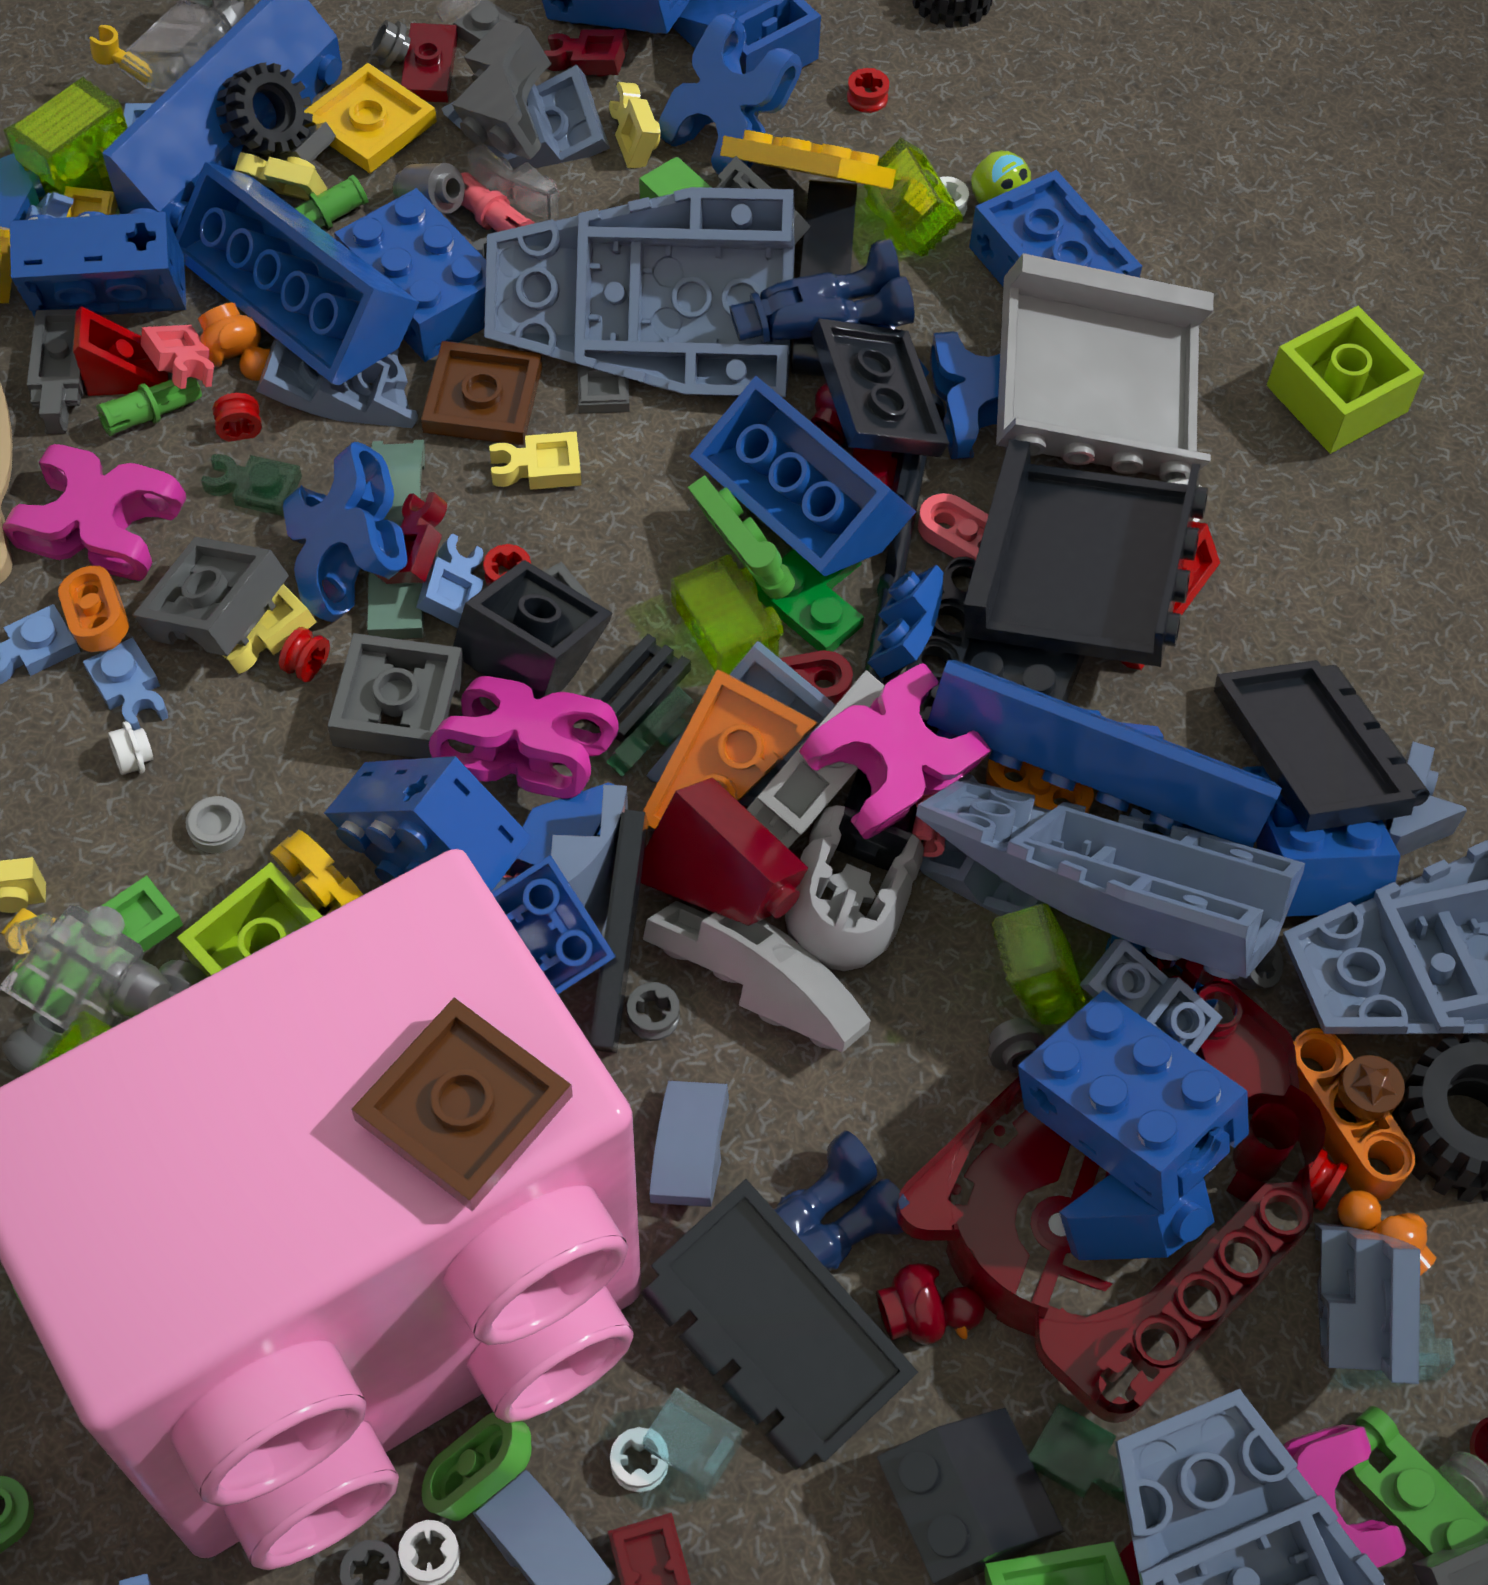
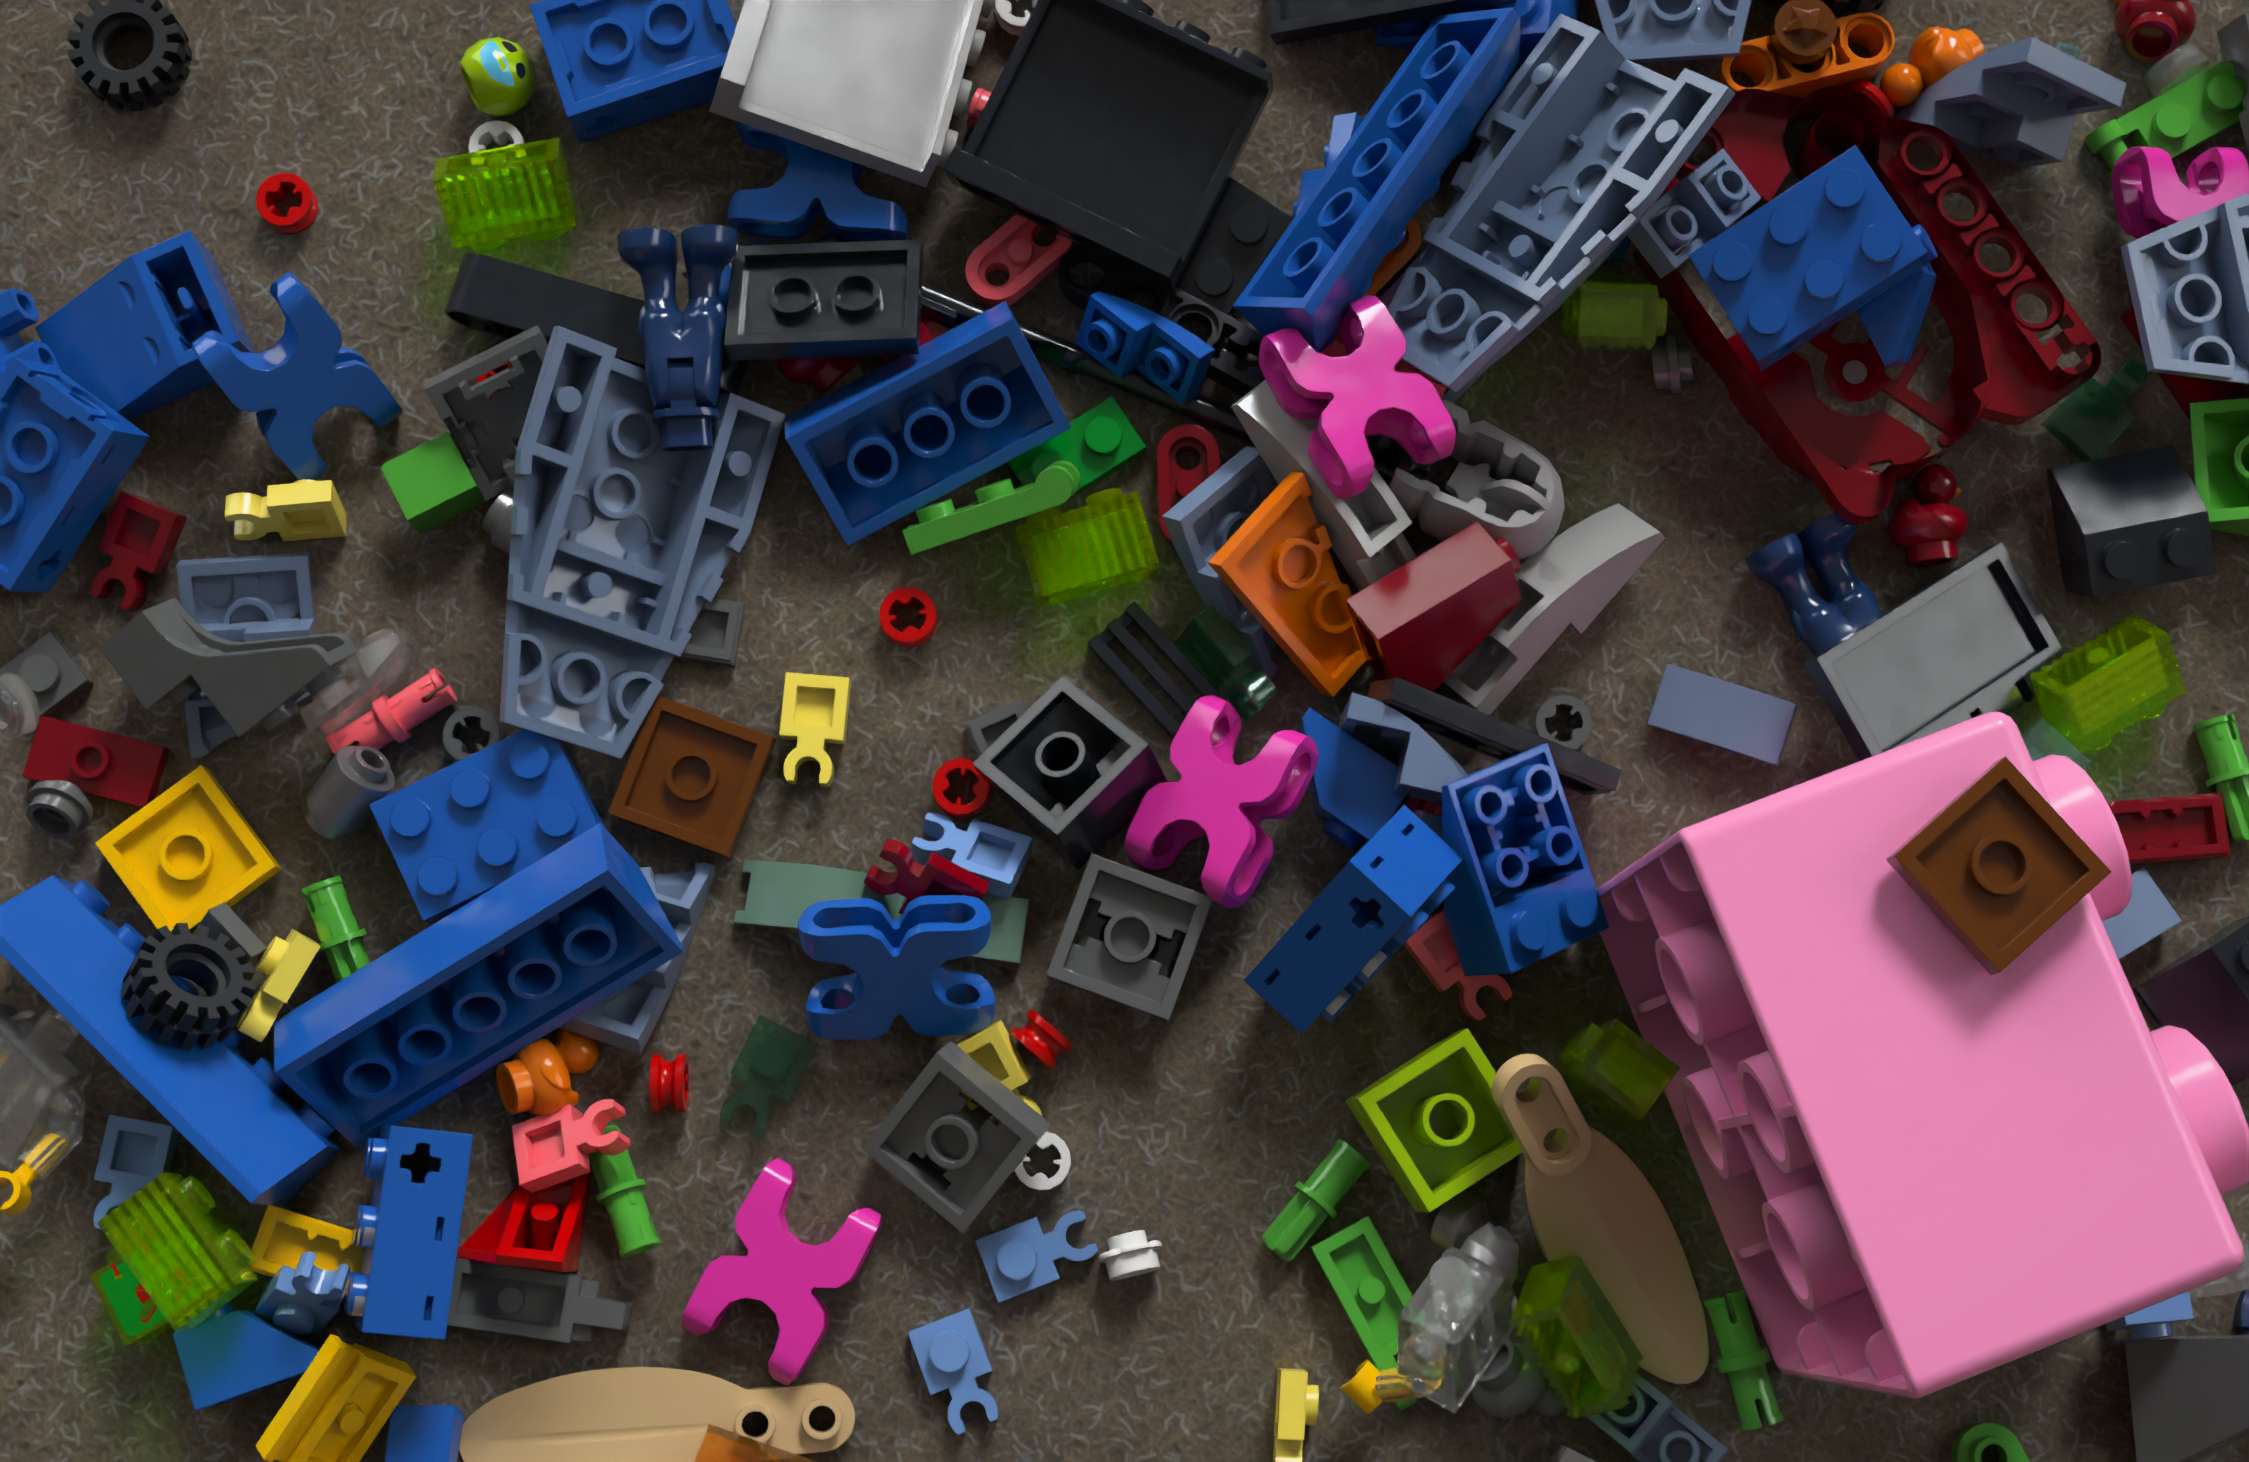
camera: 80 degrees left, 20 degrees up
(93, 609) = (935, 1281): orange plate -> none
(186, 877) = (1315, 1201): none -> bright green axle
(204, 691) = (1039, 1180): none -> white bush
(215, 824) = (1243, 1168): light grey tile -> none
(320, 879) = (1389, 1036): yellow plate -> none
(646, 525) = (911, 635): none -> red bush
(792, 1500) = (2109, 684): none -> clear neon green brick
(809, 158) = (443, 303): yellow plate -> none

